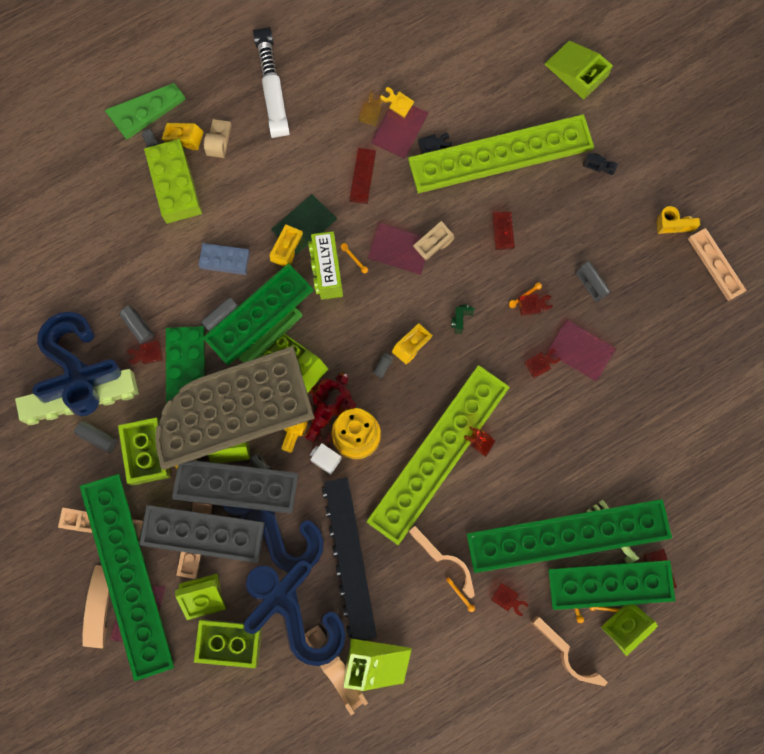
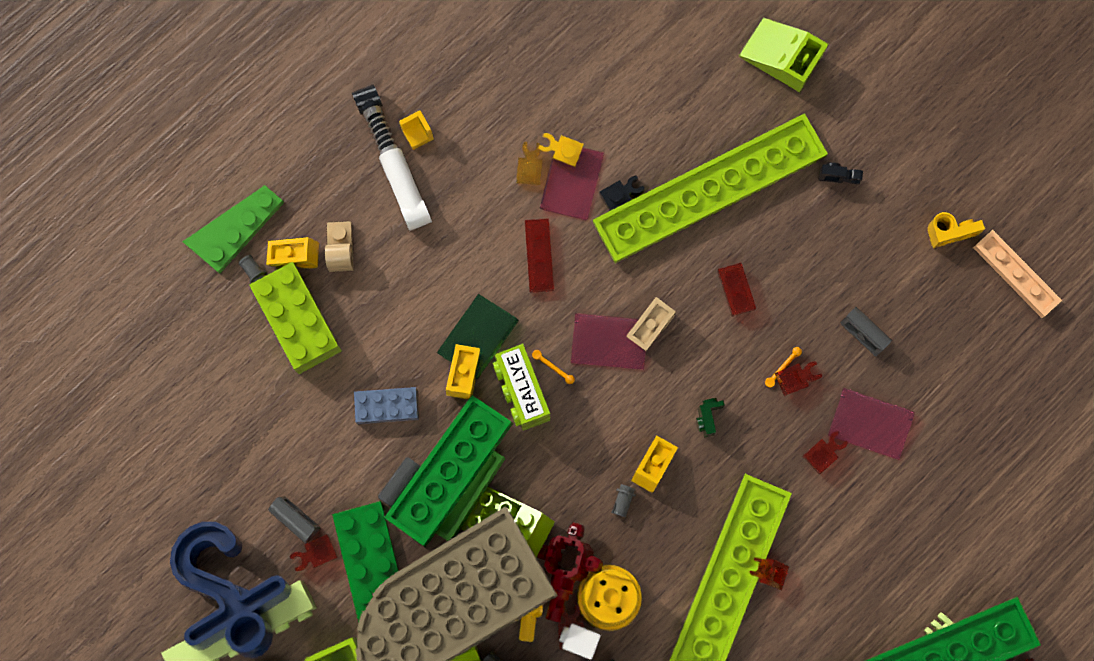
camera: 10 degrees left, 0 degrees up
(293, 66) = (416, 130): none -> yellow panel

